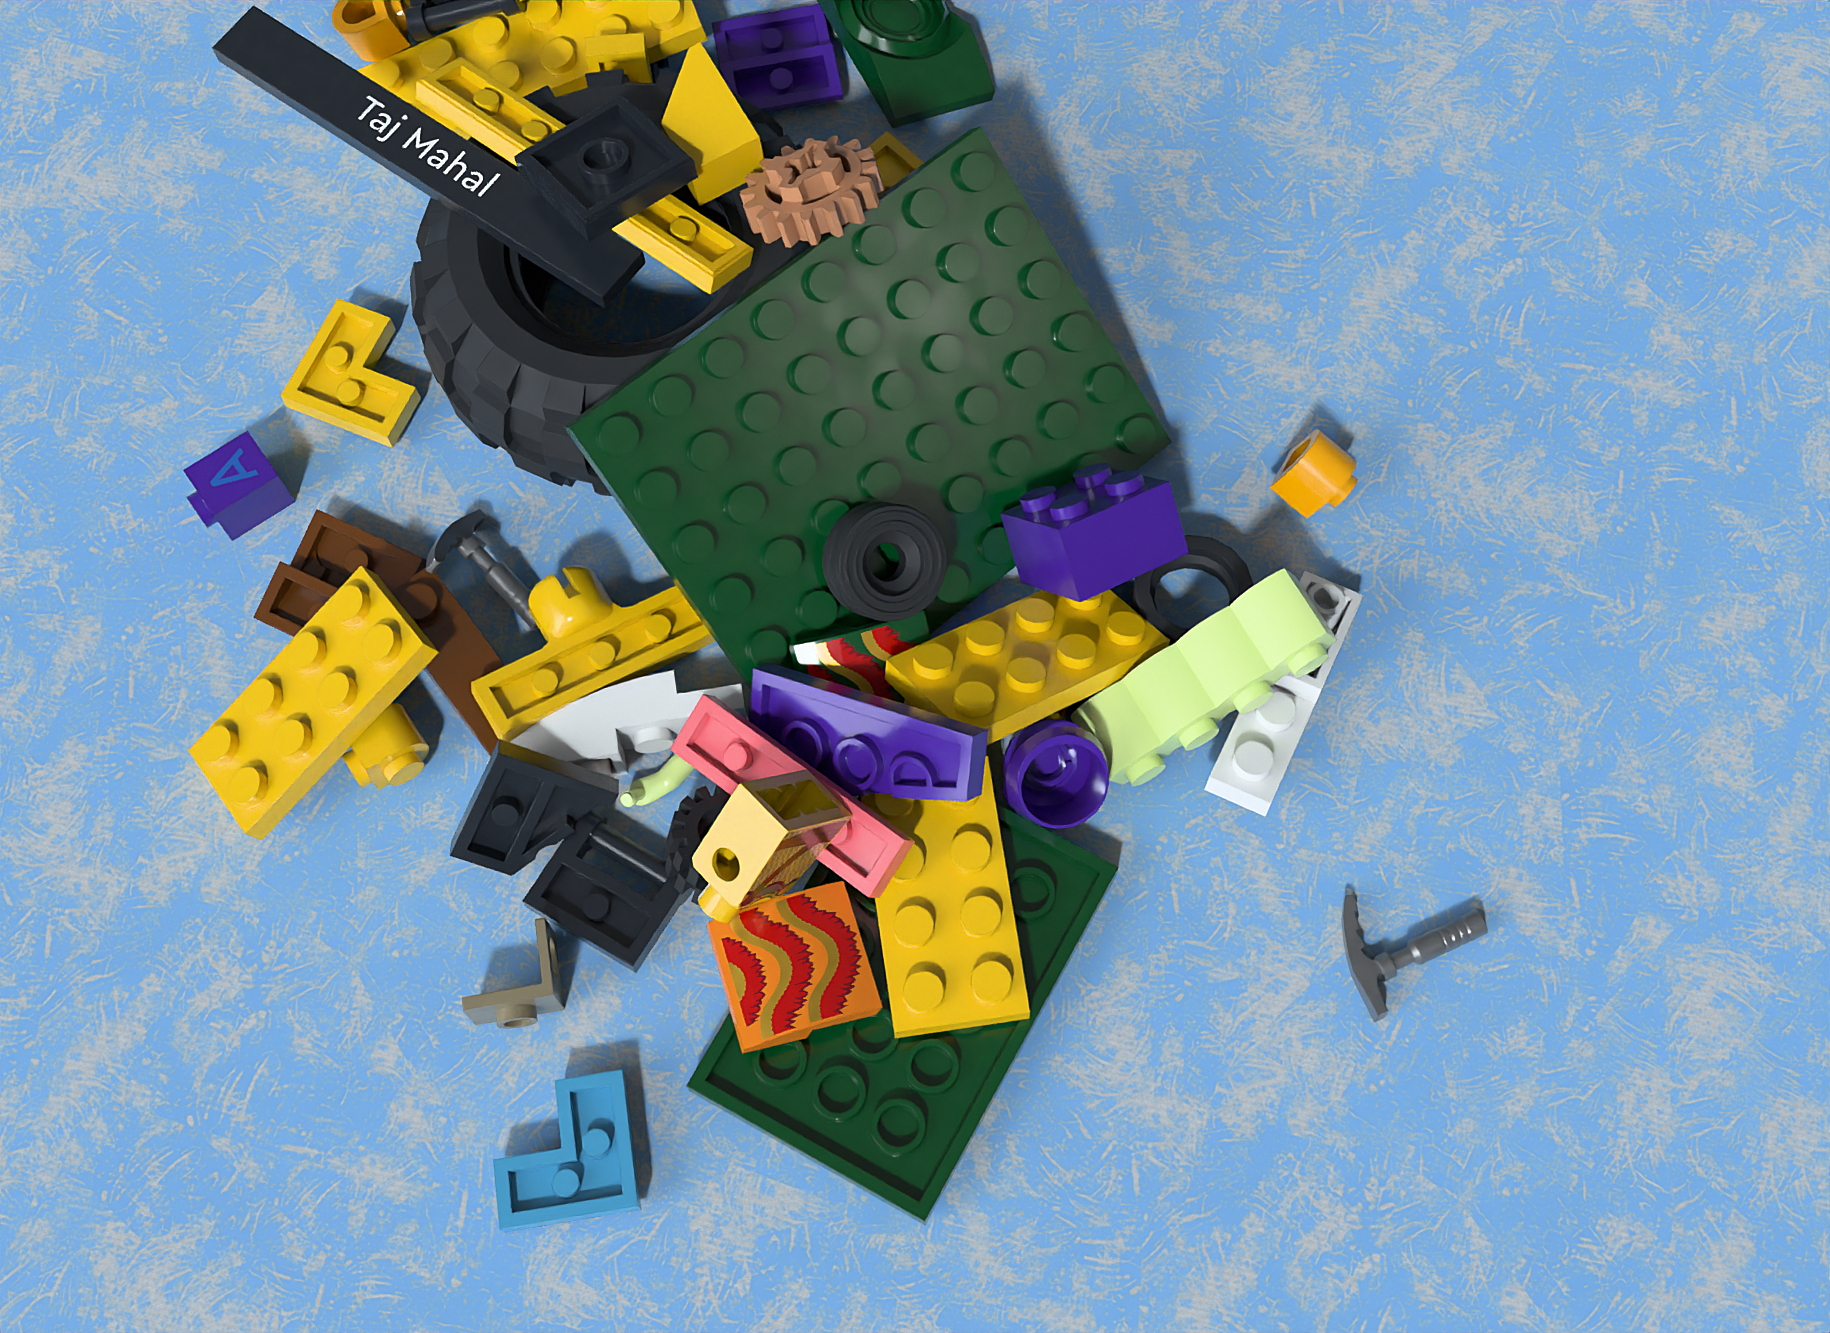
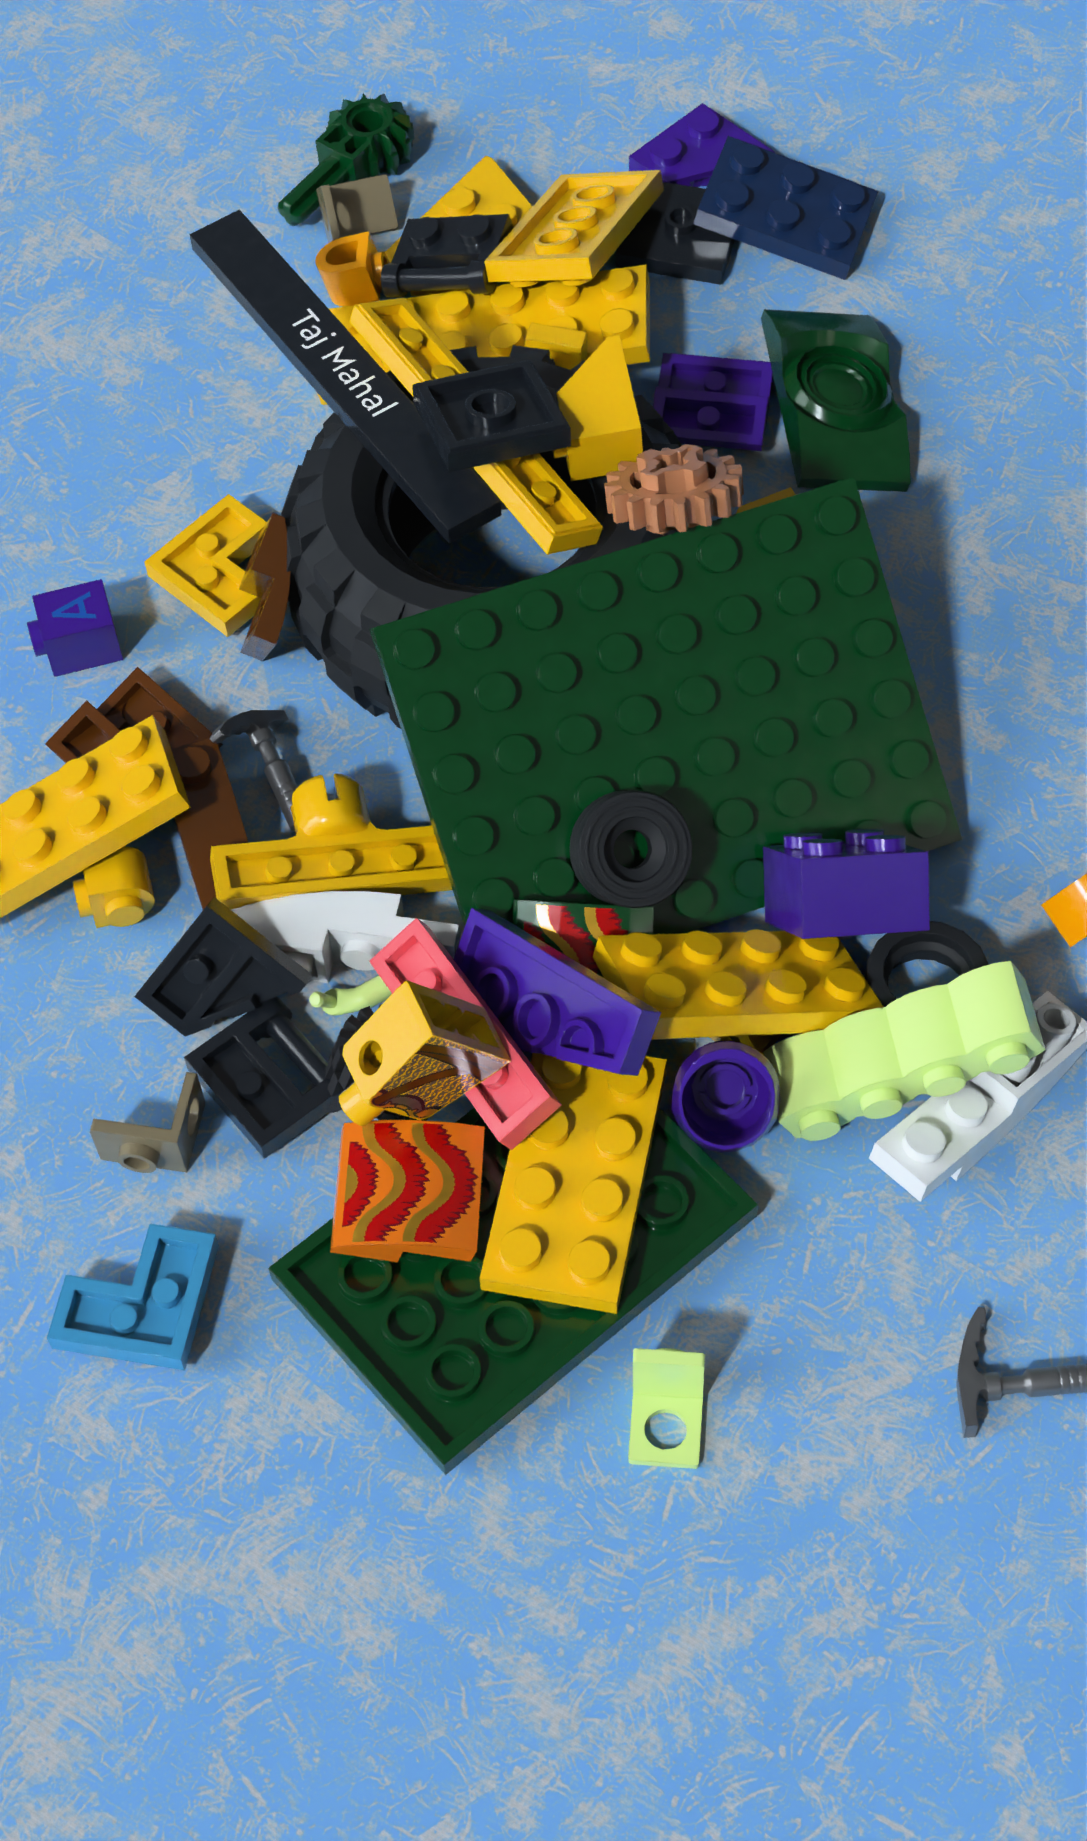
camera: 20 degrees right, 10 degrees down
(418, 376) = (269, 580): none -> reddish brown slope
(1101, 1067) = (667, 1383): none -> yellowish green bracket

